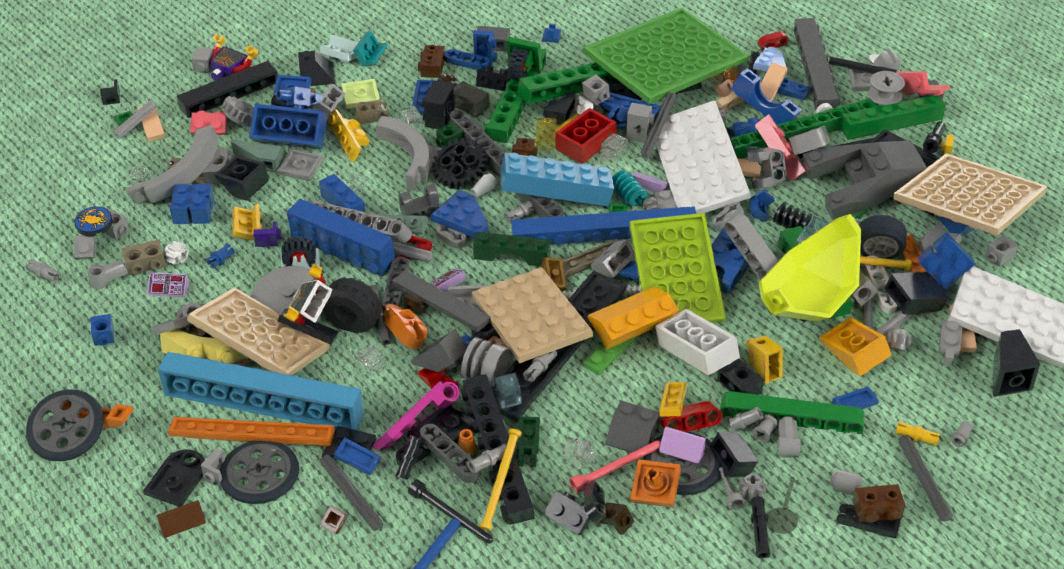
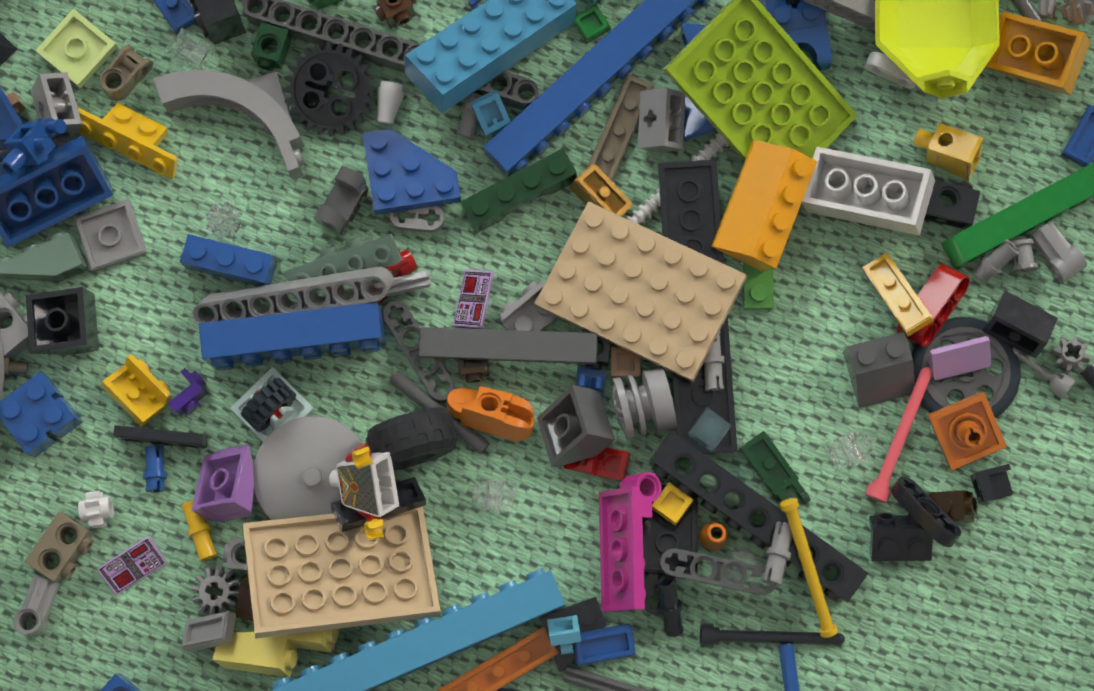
camera: 35 degrees left, 35 degrees up
(214, 289) = (199, 532): none -> yellow pin
(240, 246) = (161, 437): none -> black tile
(244, 278) = (225, 485): none -> medium lavender slope
(340, 432) = (564, 632): none -> medium azure tile
(456, 413) = (672, 504): none -> yellow plate
(528, 208) = (490, 113): none -> dark azure bracket
(649, 518) = (992, 484): none -> black panel
(762, 311) = (883, 66): none -> white beam

